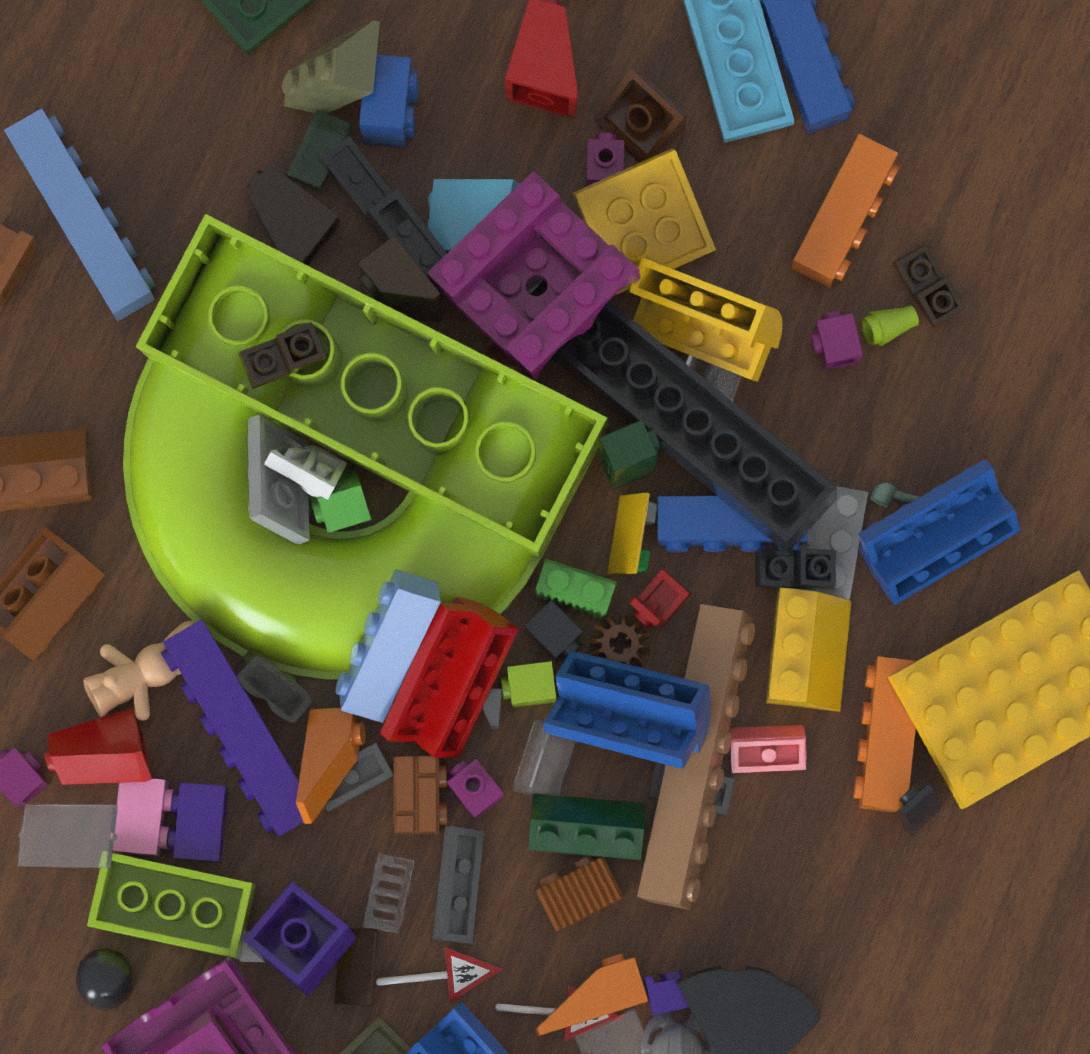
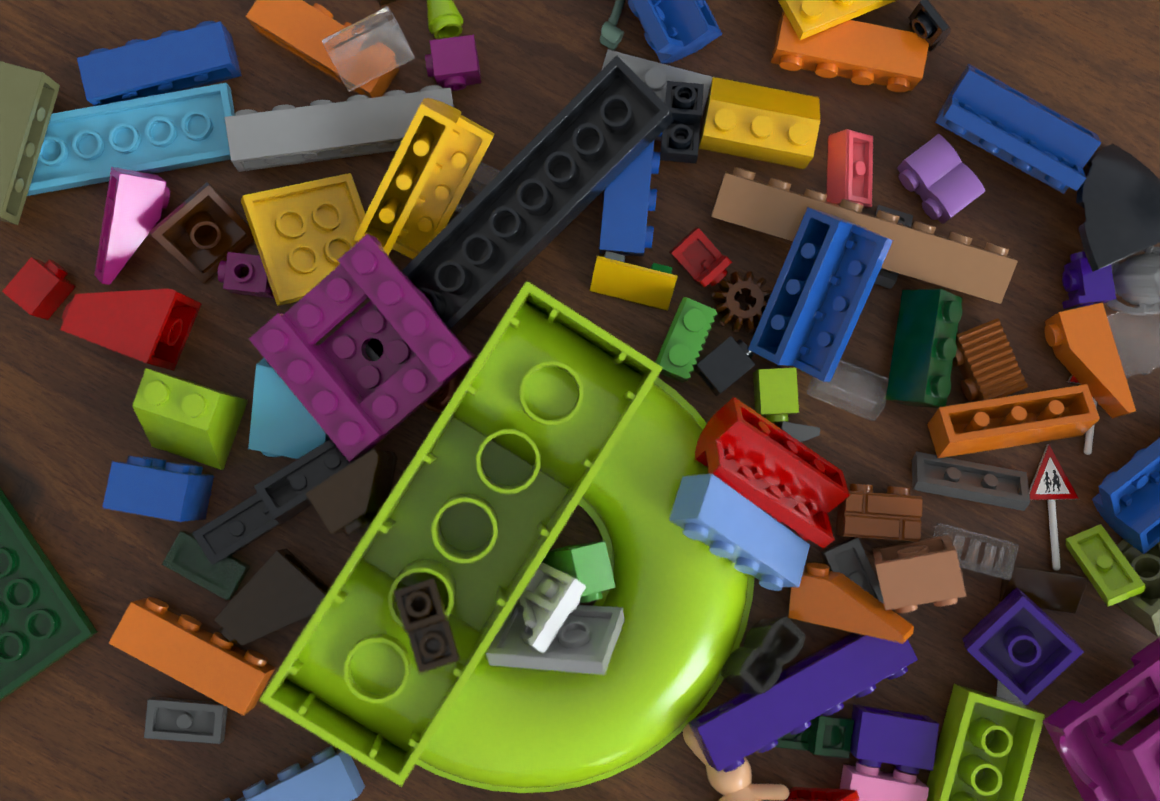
camera: 85 degrees left, 5 degrees up
(170, 147) = (185, 720): none -> dark grey plate
(197, 750) = (825, 737): none -> dark green slope
(233, 147) = (192, 654): none -> orange brick
(334, 72) = (122, 541): olive slope -> none
(362, 828) = (919, 574): none -> nougat slope
(384, 1019) = (1104, 565): none -> lime plate
(459, 121) = (188, 417): none -> lime slope
(474, 787) = (875, 457): magenta brick -> none
(520, 918) = (1012, 421): none -> orange brick
(628, 454) = (558, 267): dark green brick -> none
(654, 44) = (130, 212): none -> slope
(754, 228) = (324, 129): none -> light grey brick
(763, 836) = (940, 179): none -> medium lavender brick
(822, 909) = (1018, 129): none -> blue brick
(835, 253) = (368, 48): none -> clear panel

